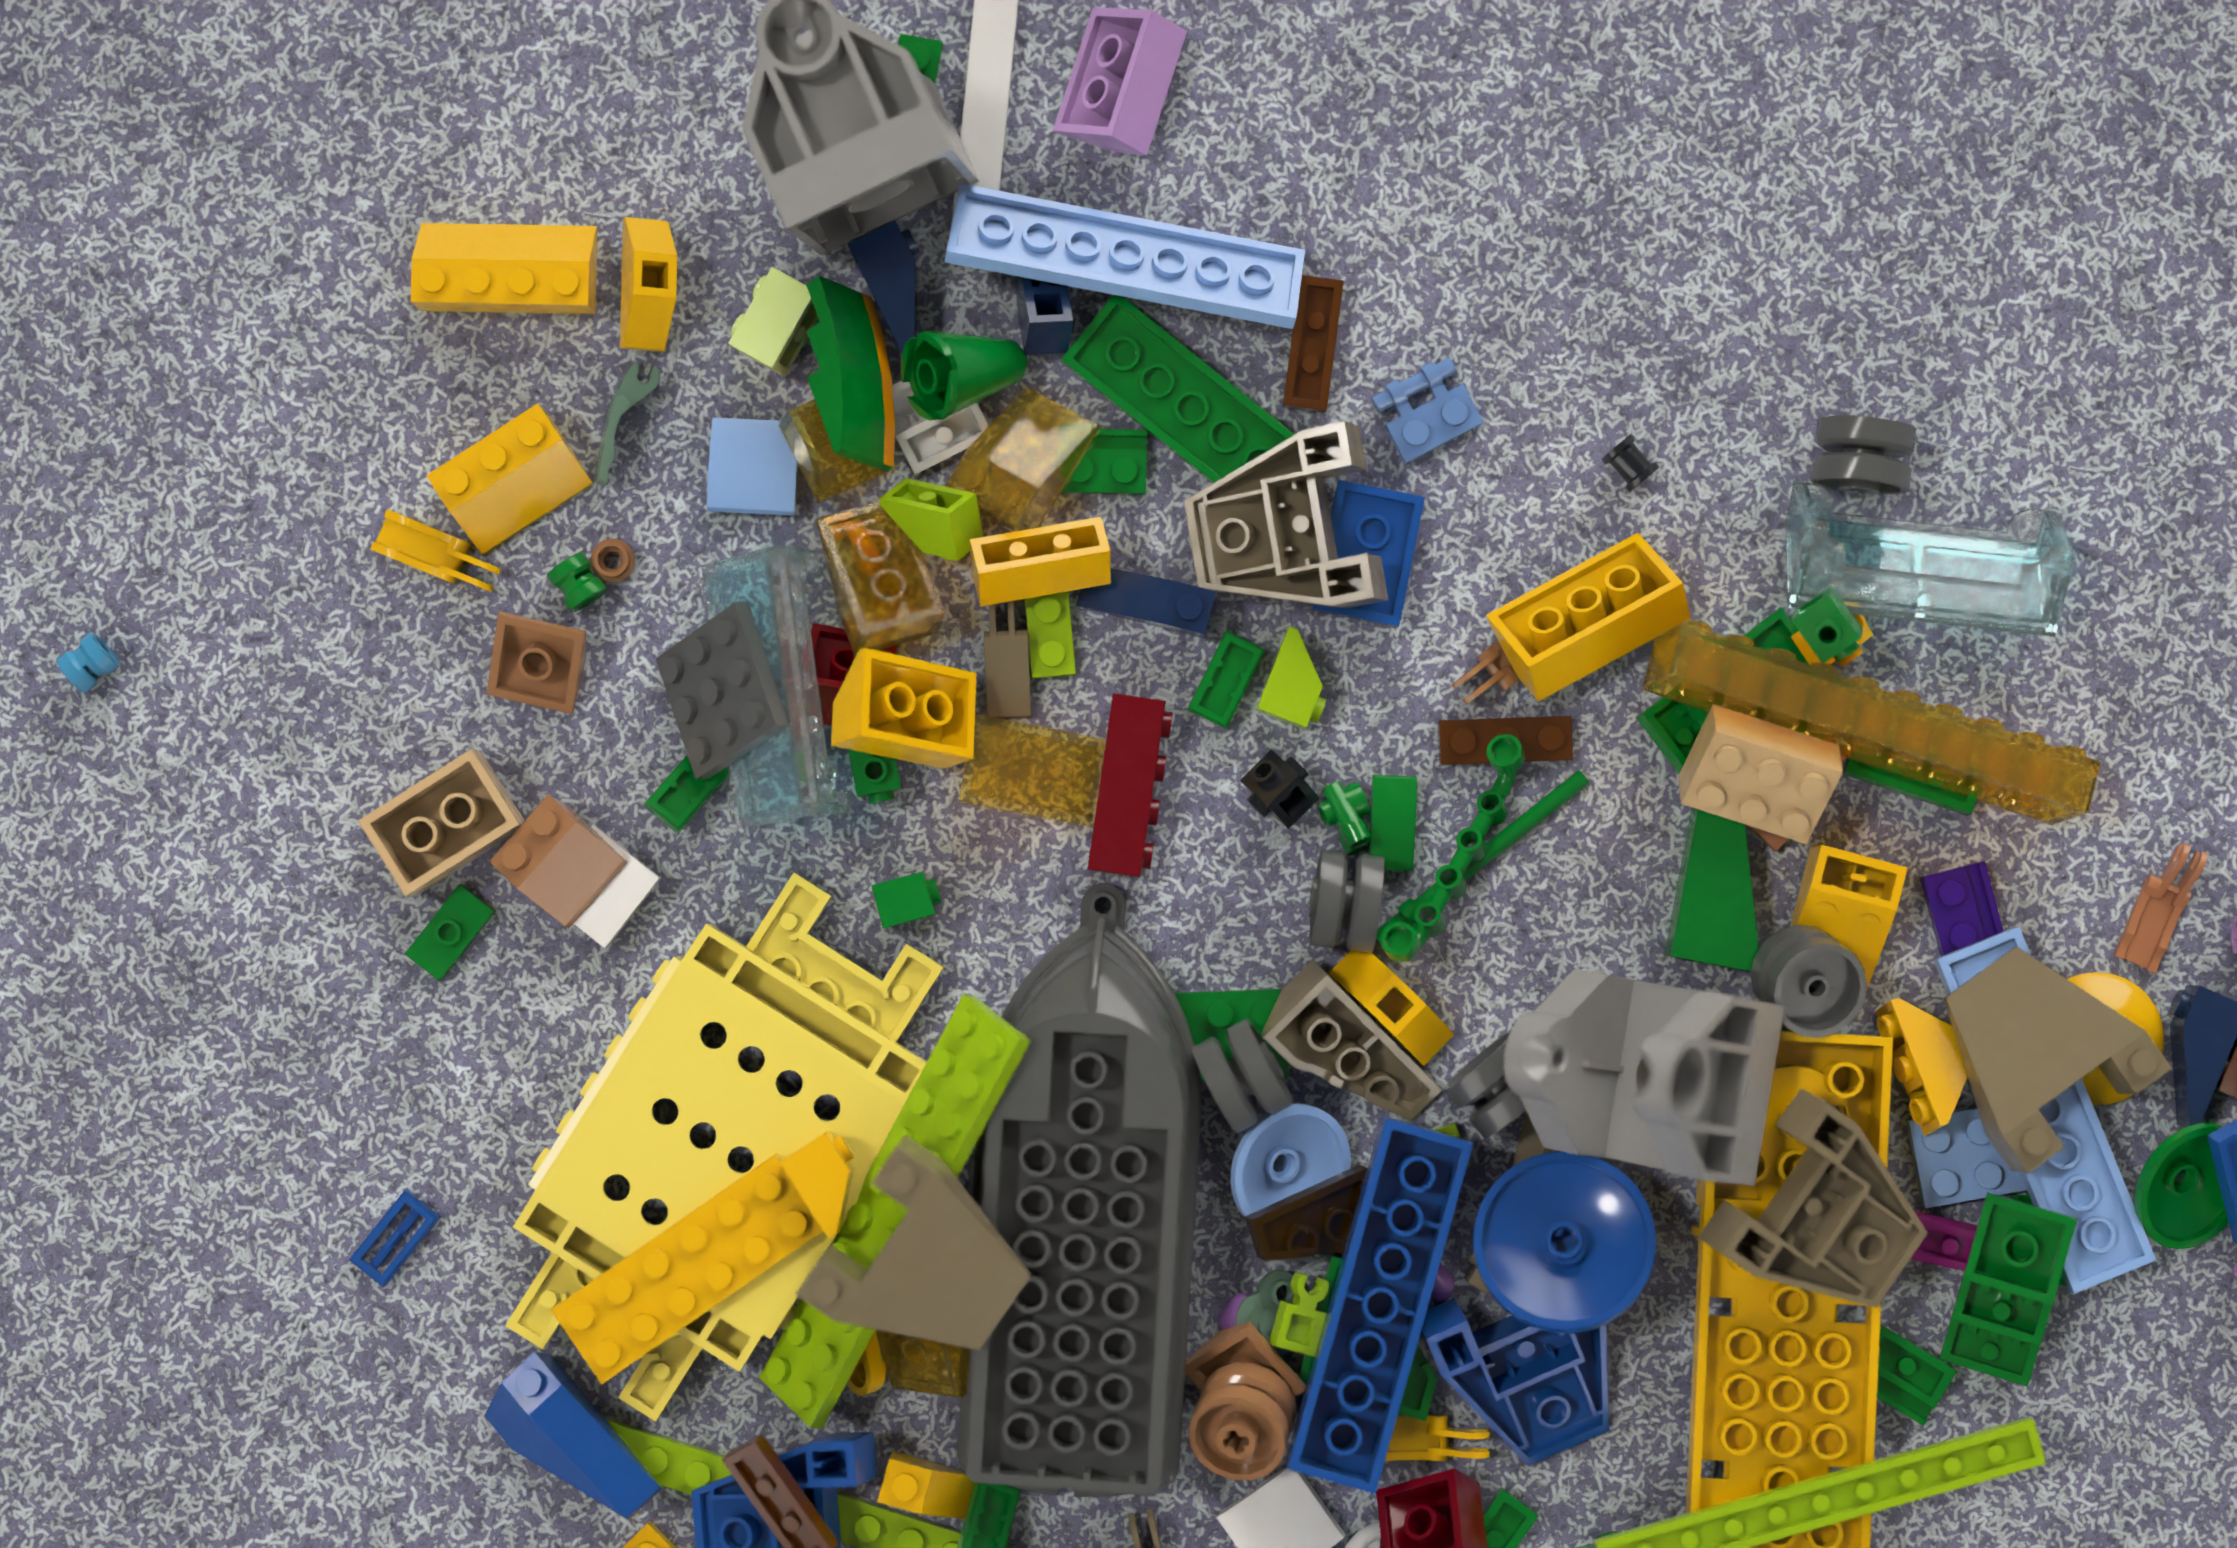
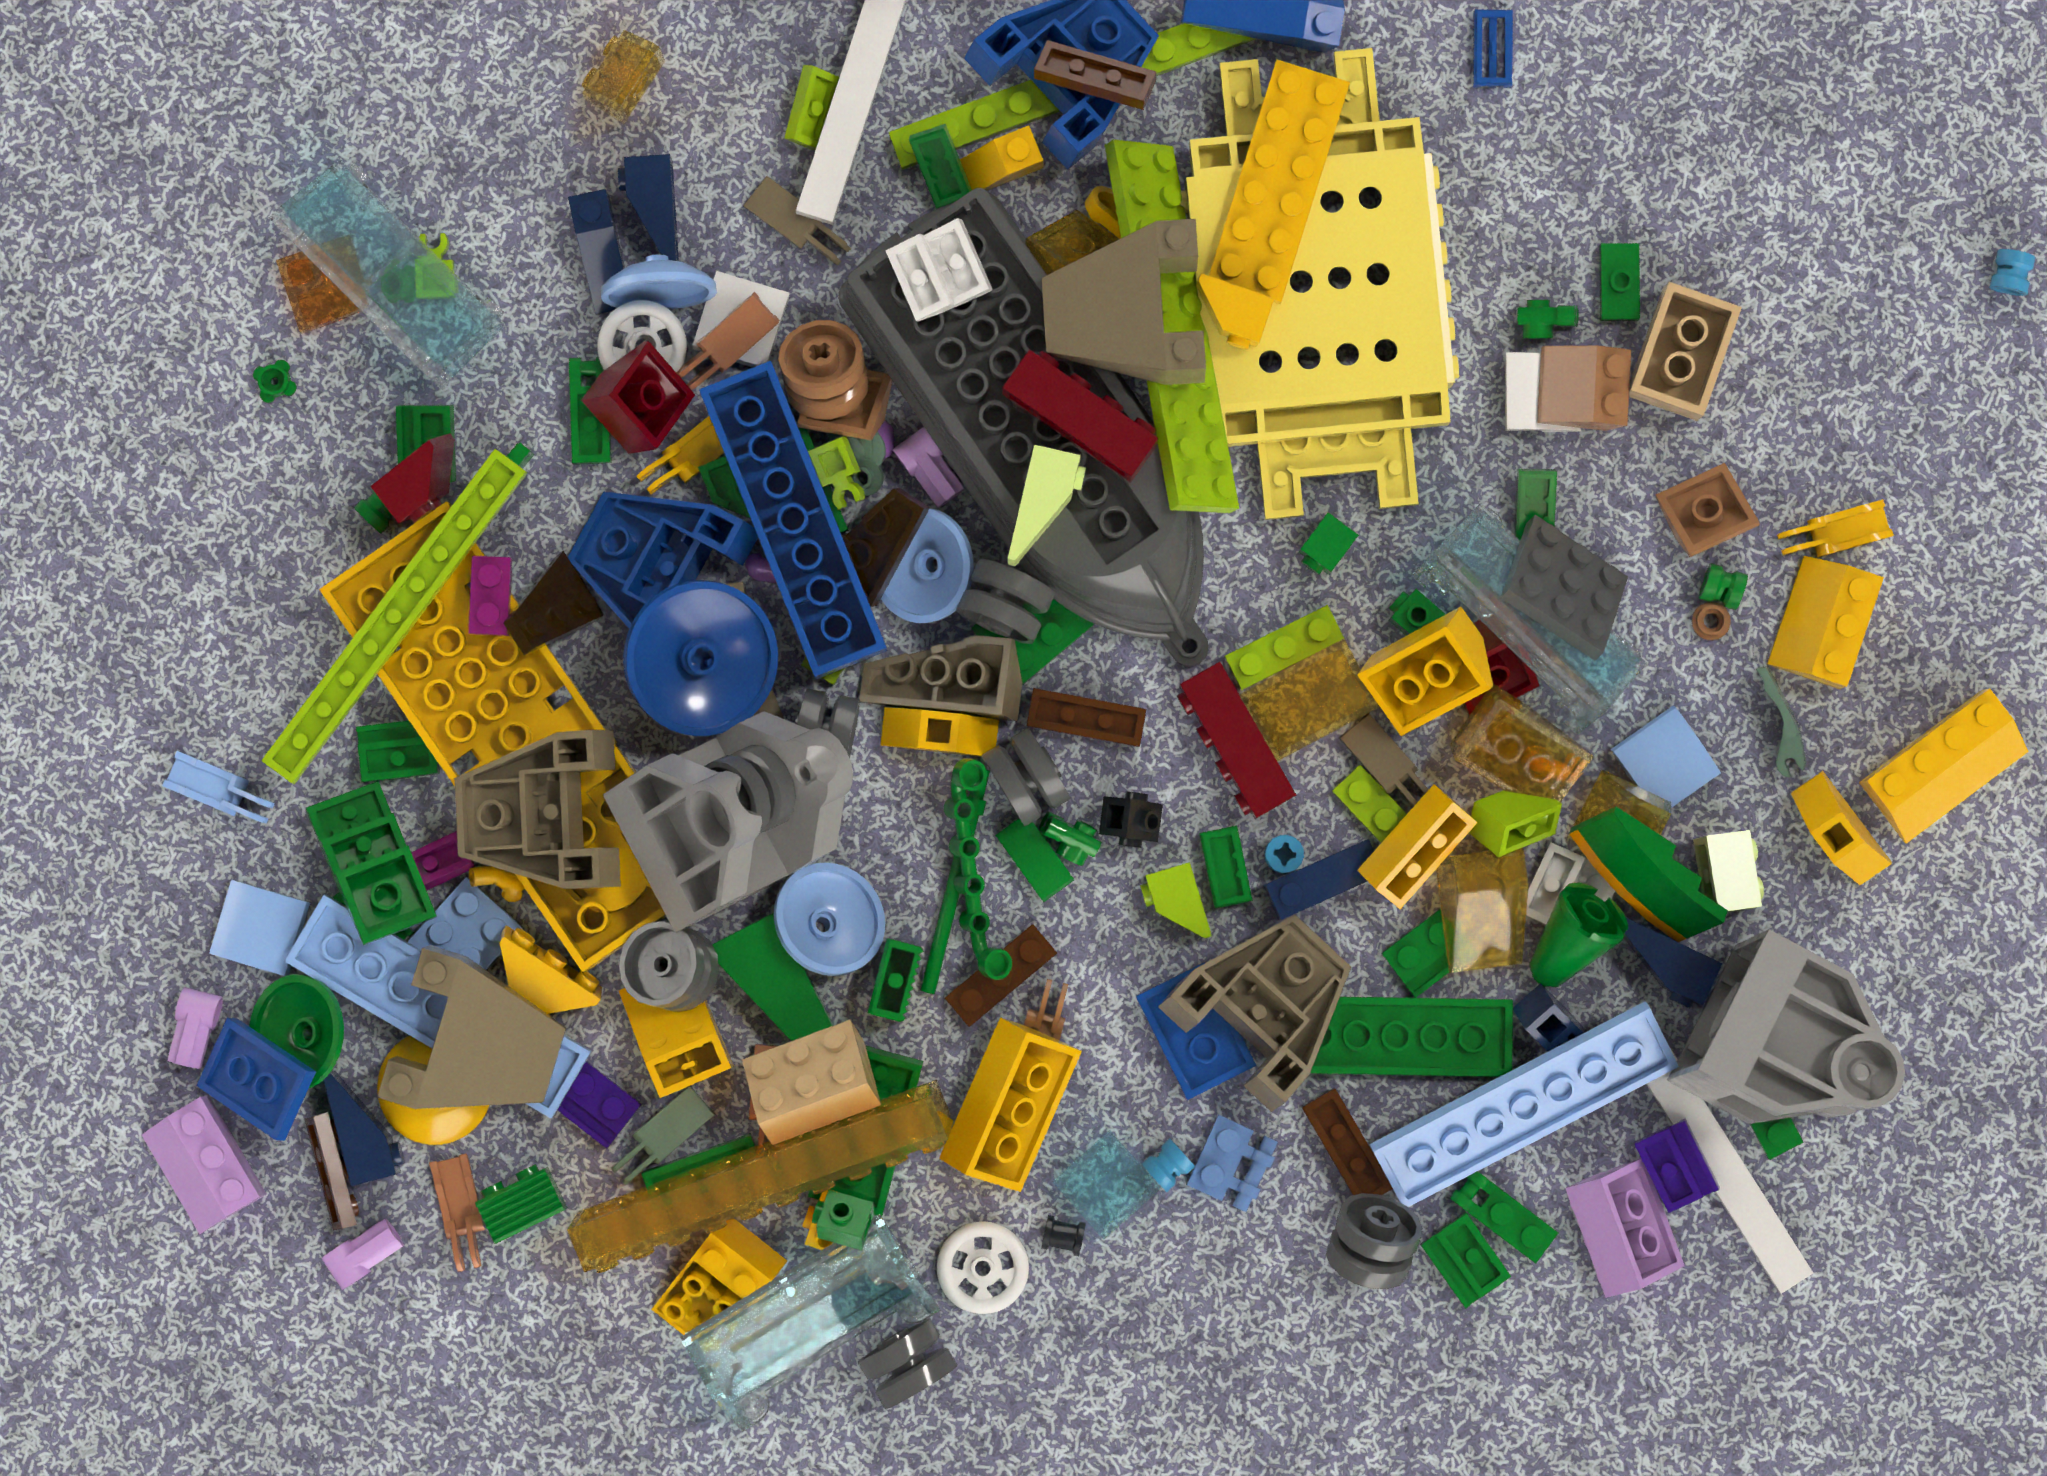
camera: 150 degrees right, 0 degrees up
(549, 956) = (1540, 317): none -> green plate
(1017, 837) = (1284, 647): none -> lime plate
(1030, 99) = (1677, 1165): none -> dark purple plate
(1044, 1193) = (1081, 415): none -> dark red brick
(1068, 1432) = (939, 270): none -> white slope
(1133, 1145) = (1046, 493): none -> yellowish green slope
(1159, 655) = (1277, 854): none -> dark azure wheel
(1213, 1264) = (924, 461): none -> lavender piece
(1218, 173) = (1505, 1217): none -> green plate
(1247, 913) = (1086, 717): none -> reddish brown plate
(1285, 162) = (1465, 1260): none -> green plate
(1304, 1516) = (731, 339): none -> nougat arm
(1357, 238) = (1374, 1241): none -> dark grey wheel
(1486, 452) = (1168, 1165): none -> dark azure wheel
(1555, 478) = (1106, 1184): none -> clear light blue plate
(1599, 906) = (846, 909): none -> light blue dish
(1605, 1079) = (764, 785): none -> dark grey wheel
(1607, 808) = (895, 980): none -> green brick
(1662, 1394) = (552, 608): none -> dark brown wing
(1714, 1451) = (490, 595): none -> magenta plate
(1723, 528) = (963, 1240): none -> white plate
(1914, 1196) = (505, 880): none -> yellow arm
(1915, 834) = (668, 1130): none -> sand green arm
(1972, 664) = (717, 1276): none -> yellow slope
(2093, 1470) = (212, 786): none -> light blue arm
(2102, 871) = (521, 1203): none -> green brick
(2151, 1310) = (258, 927): none -> light blue slope

